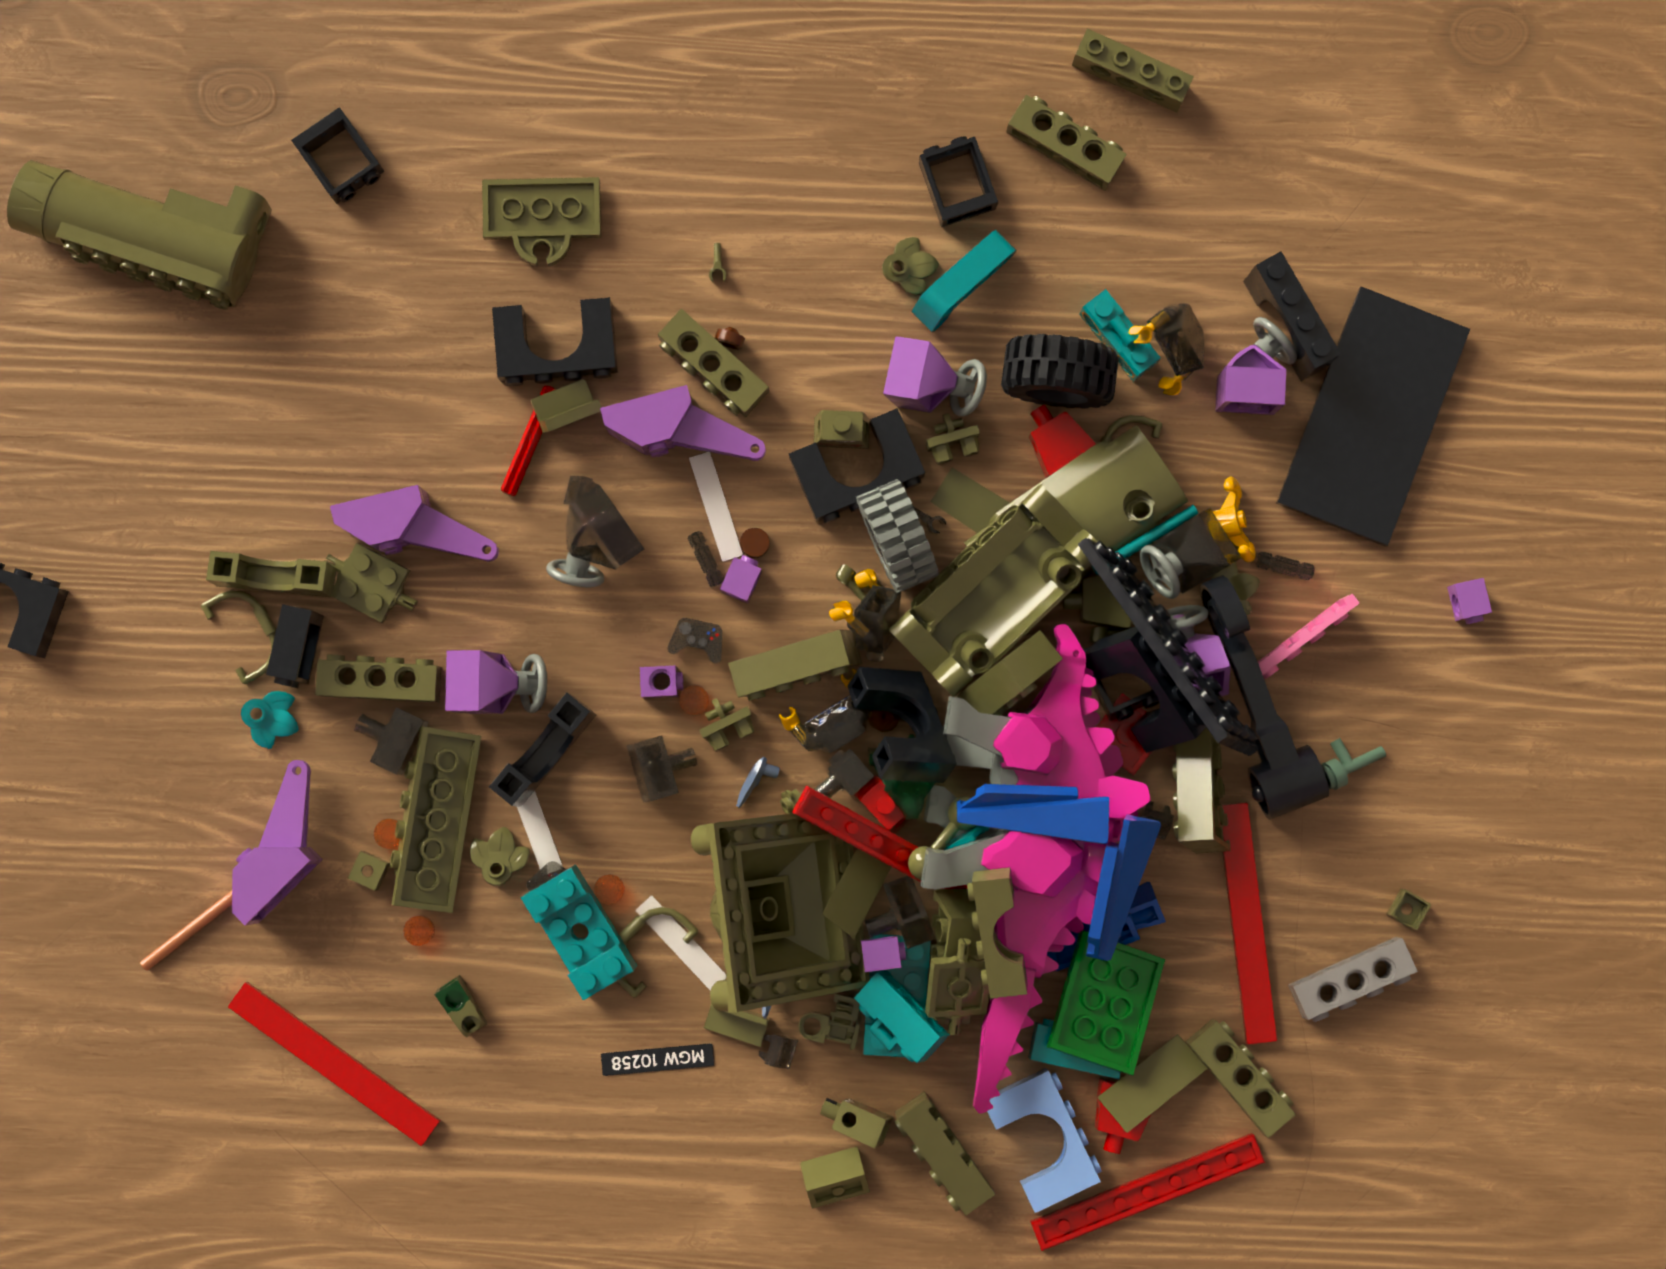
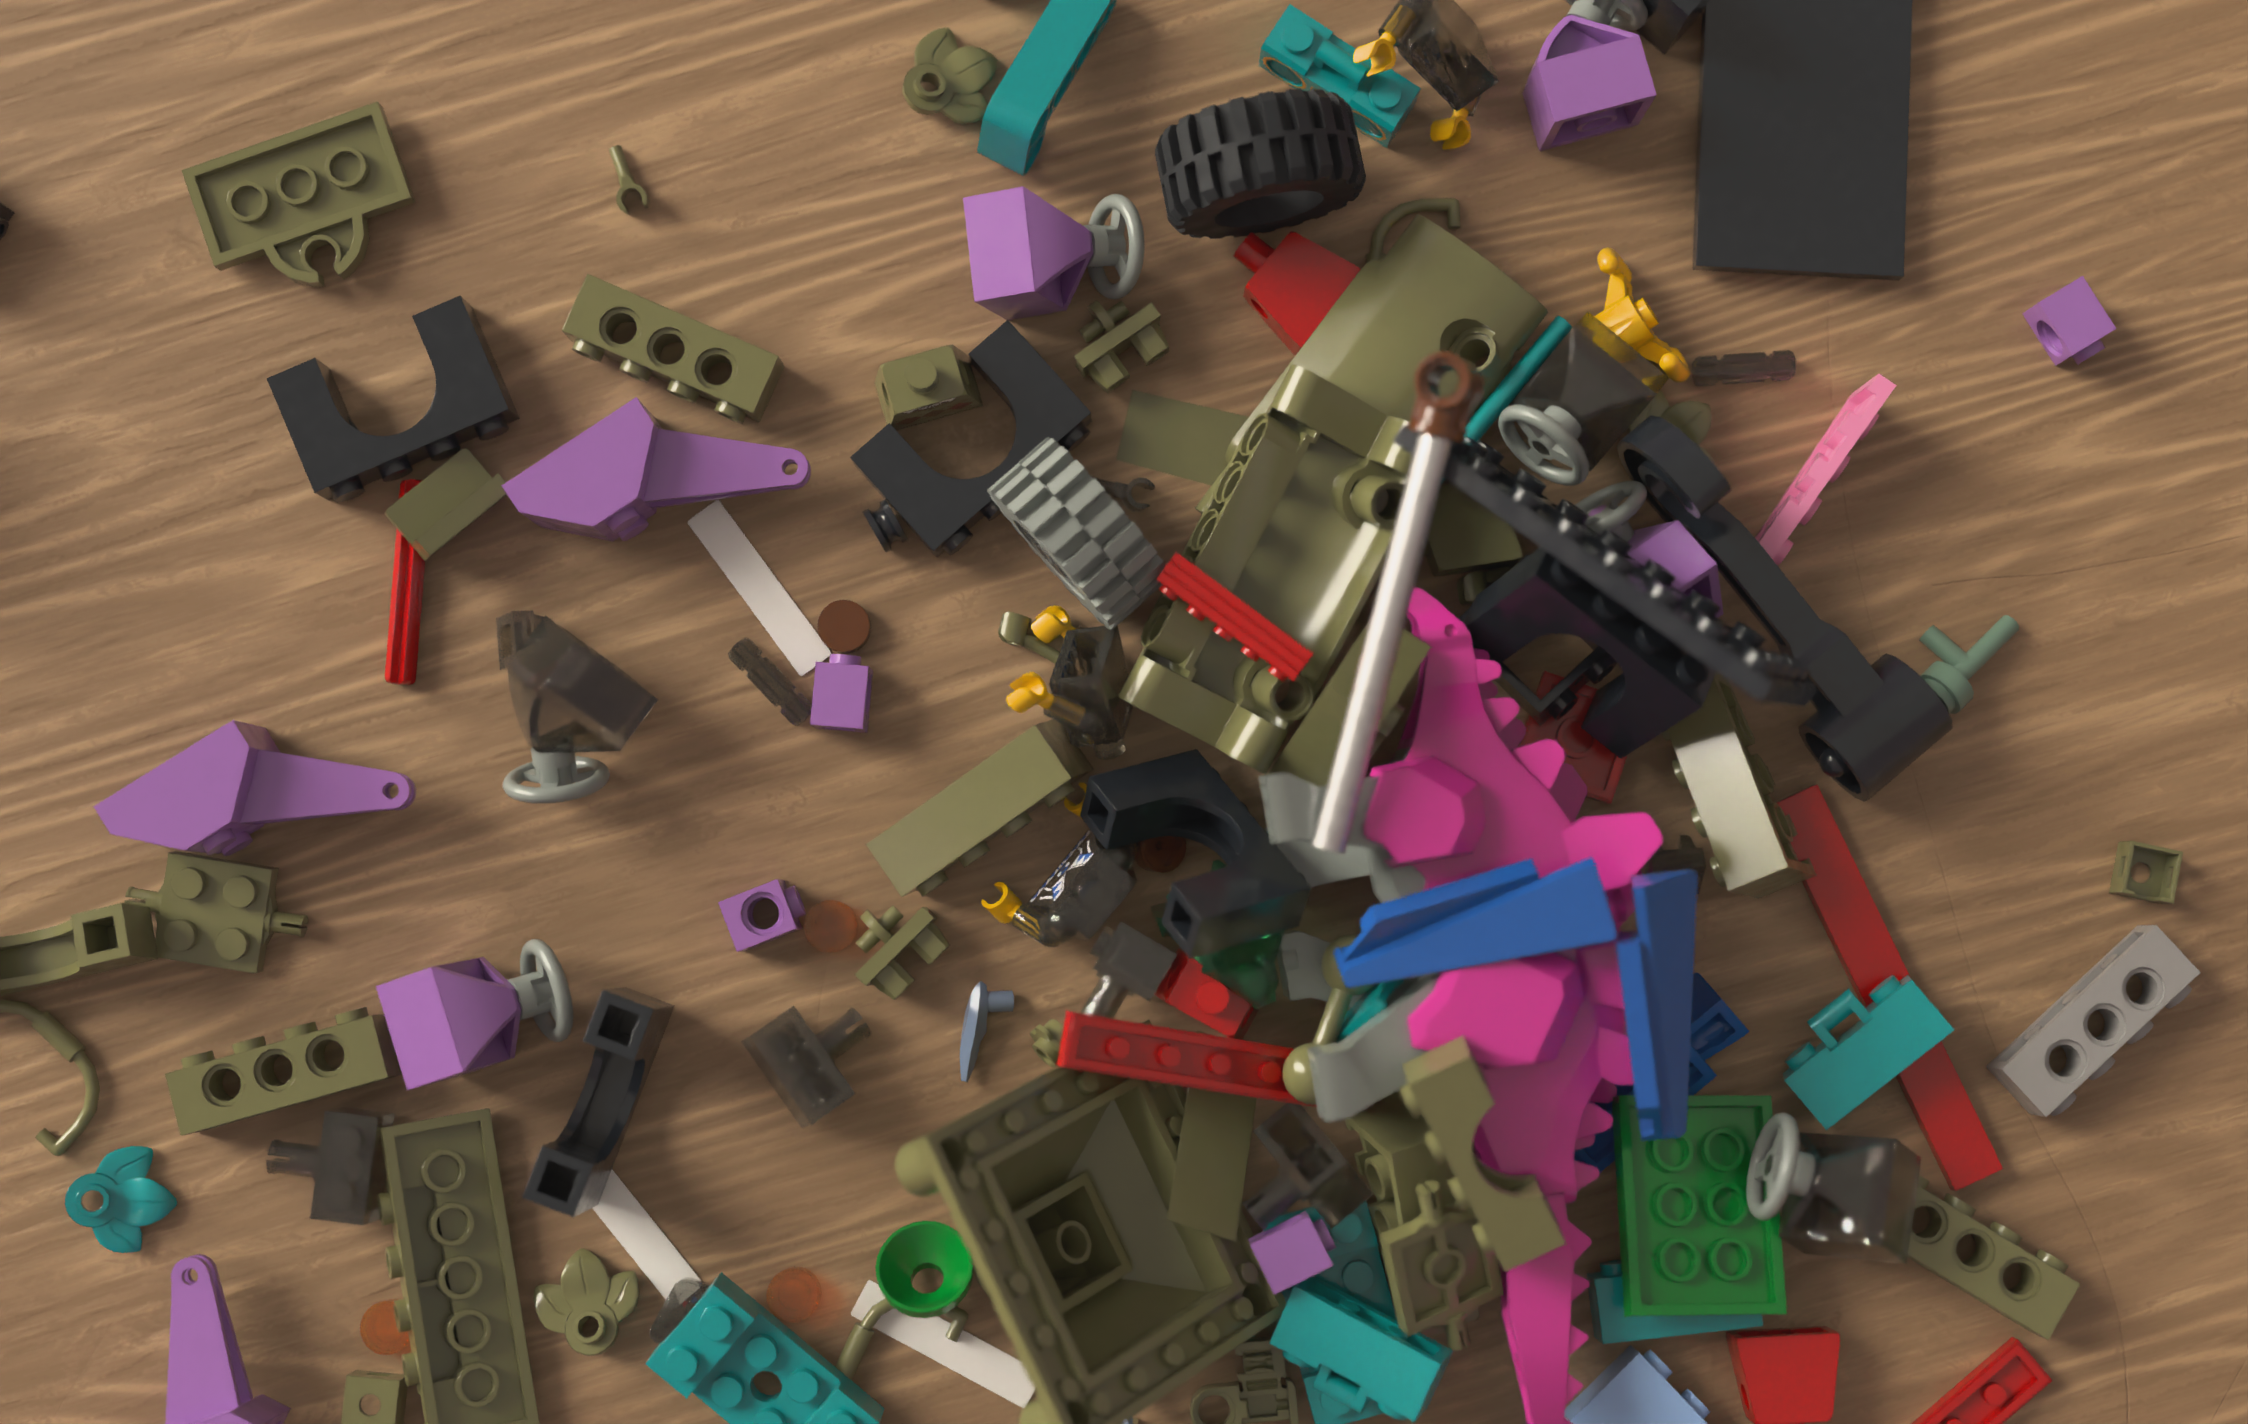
camera: 15 degrees left, 0 degrees up
(294, 646) = (117, 1065): black window -> none
(684, 887) = (922, 1247): none -> green piece
(697, 635) = (801, 814): clear smoke piece -> none
(730, 338) = (688, 297): reddish brown tile -> none
(795, 496) = (885, 525): none -> black bush
(963, 609) = (1233, 618): none -> red piece
(1102, 543) = (1438, 425): none -> flat silver piece
(1152, 1084) = (1824, 1315): olive sticker -> none
(1183, 1022) = (1835, 1191): none -> clear smoke piece
(1211, 959) = (1884, 1042): none -> teal piece

